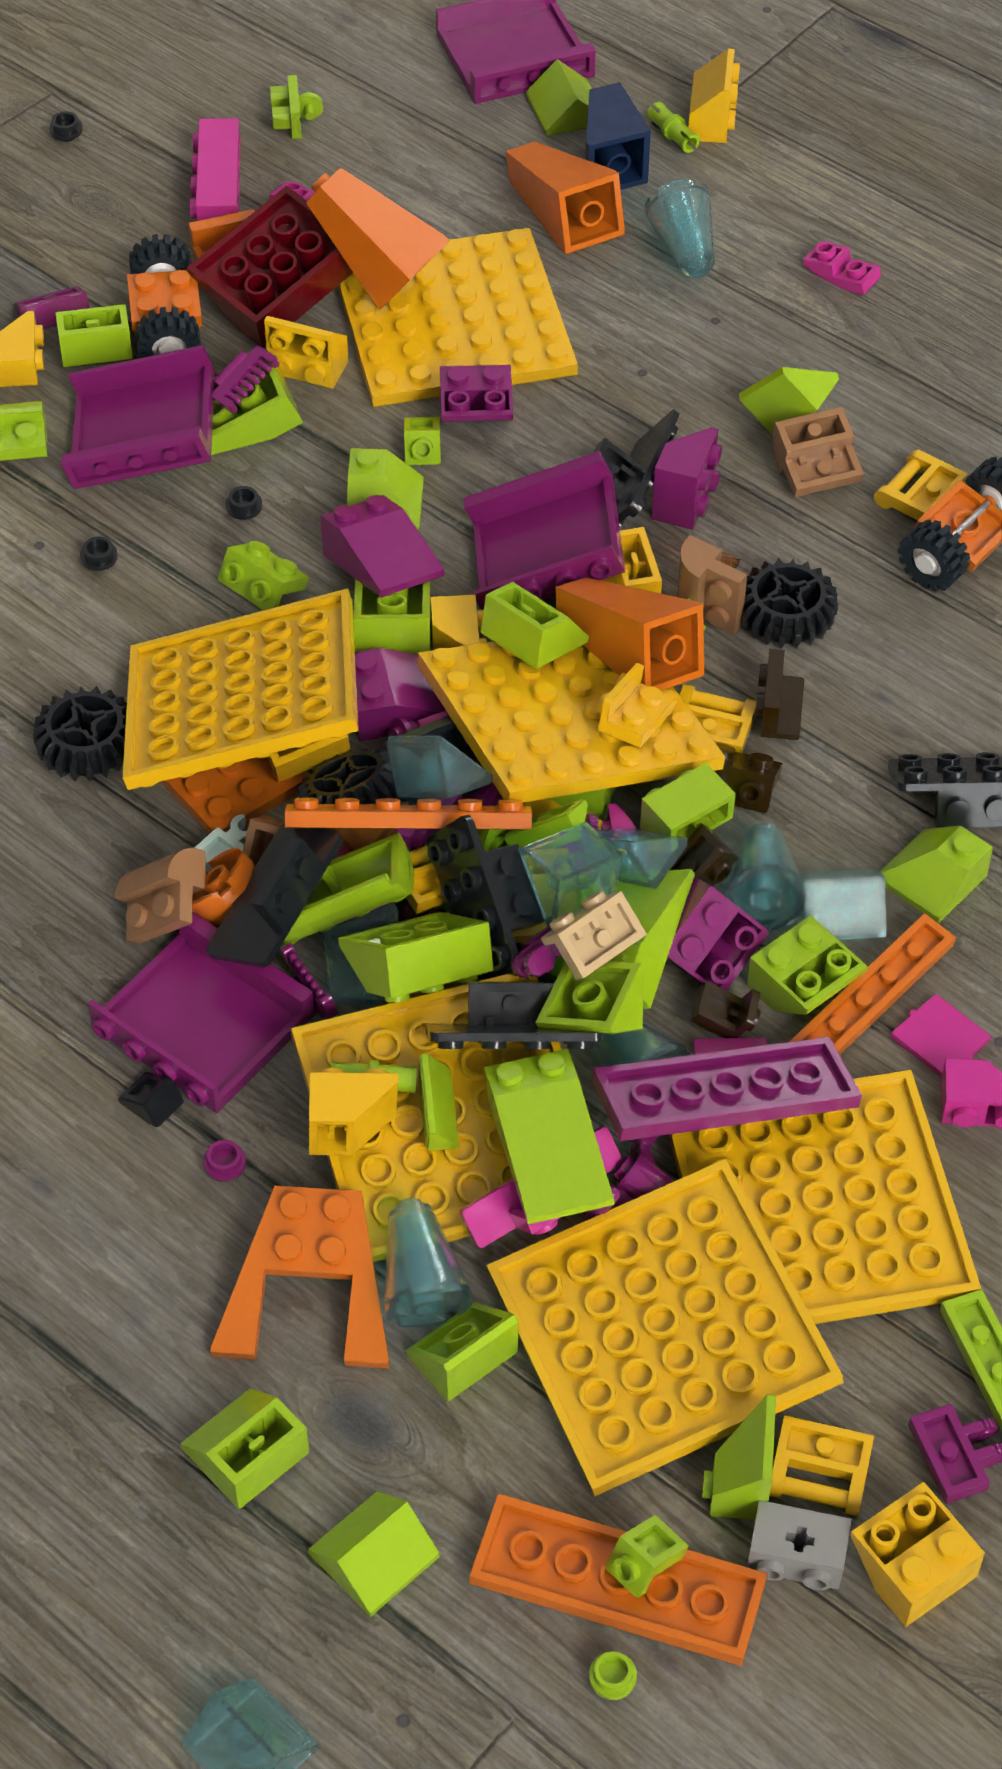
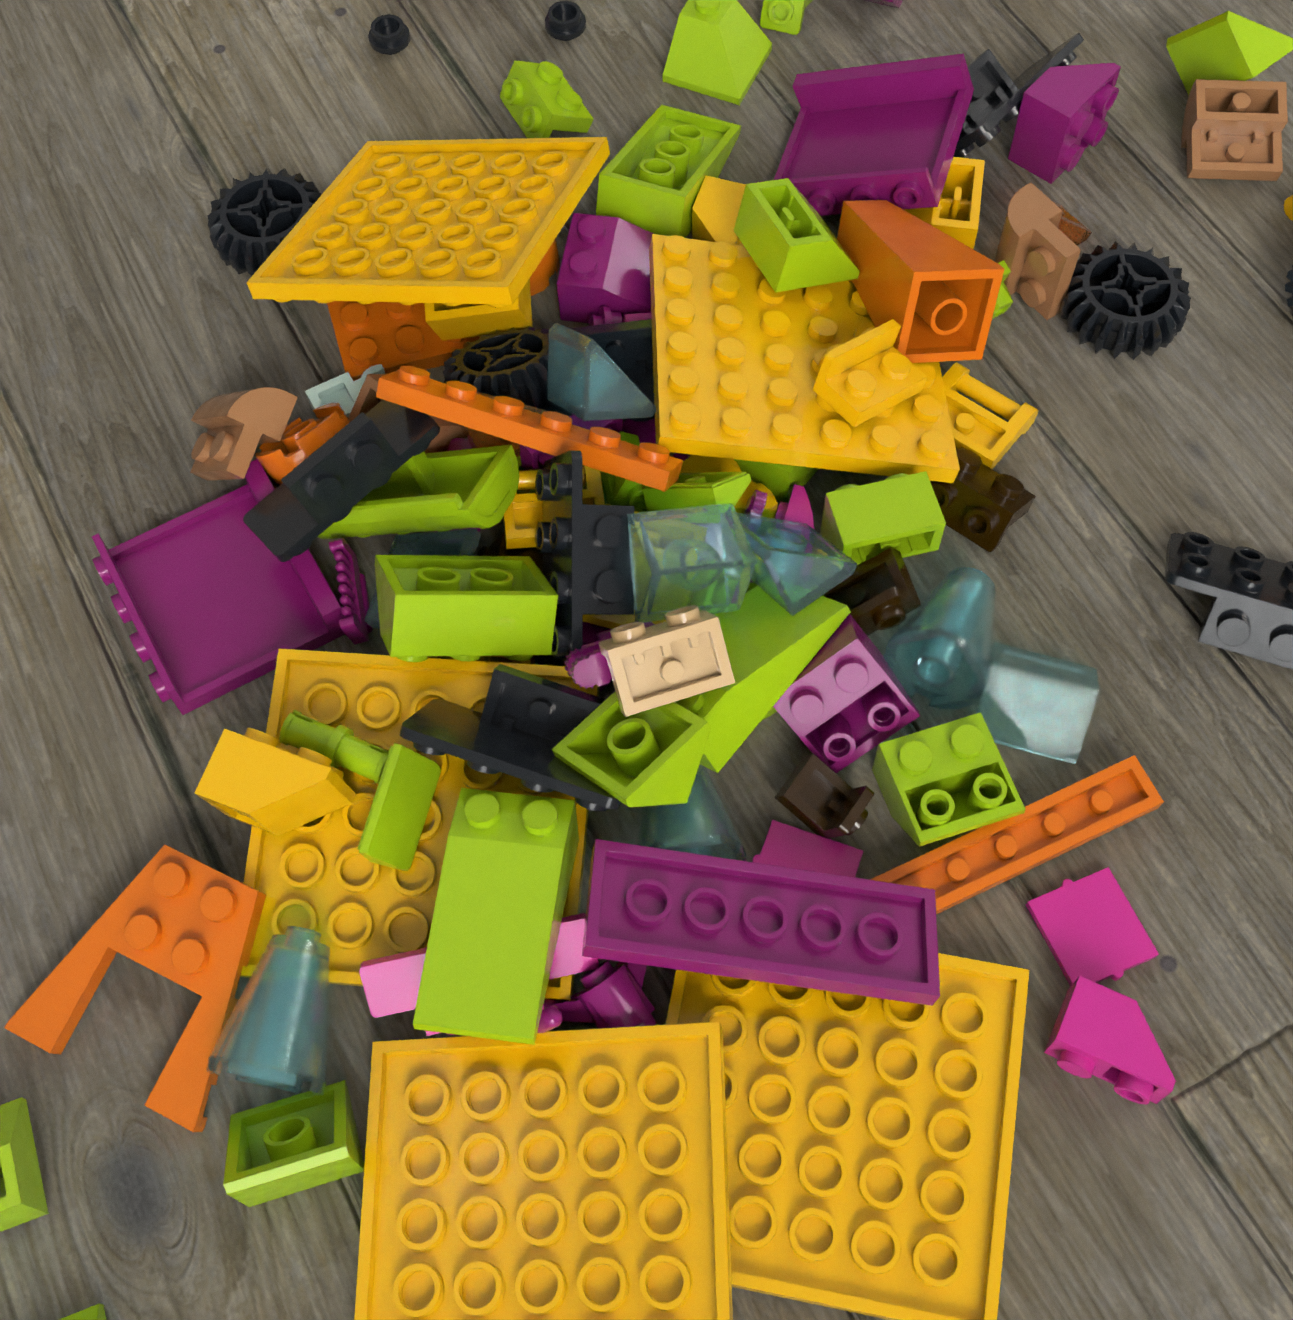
camera: 25 degrees right, 10 degrees up
(152, 1098) = (118, 673): black slope -> none
(224, 1161) = (152, 781): magenta plate -> none
(378, 546) = (676, 102): magenta slope -> none
(781, 701) = (1066, 417): dark brown bracket -> none
(938, 869) = (1177, 699): lime slope -> none

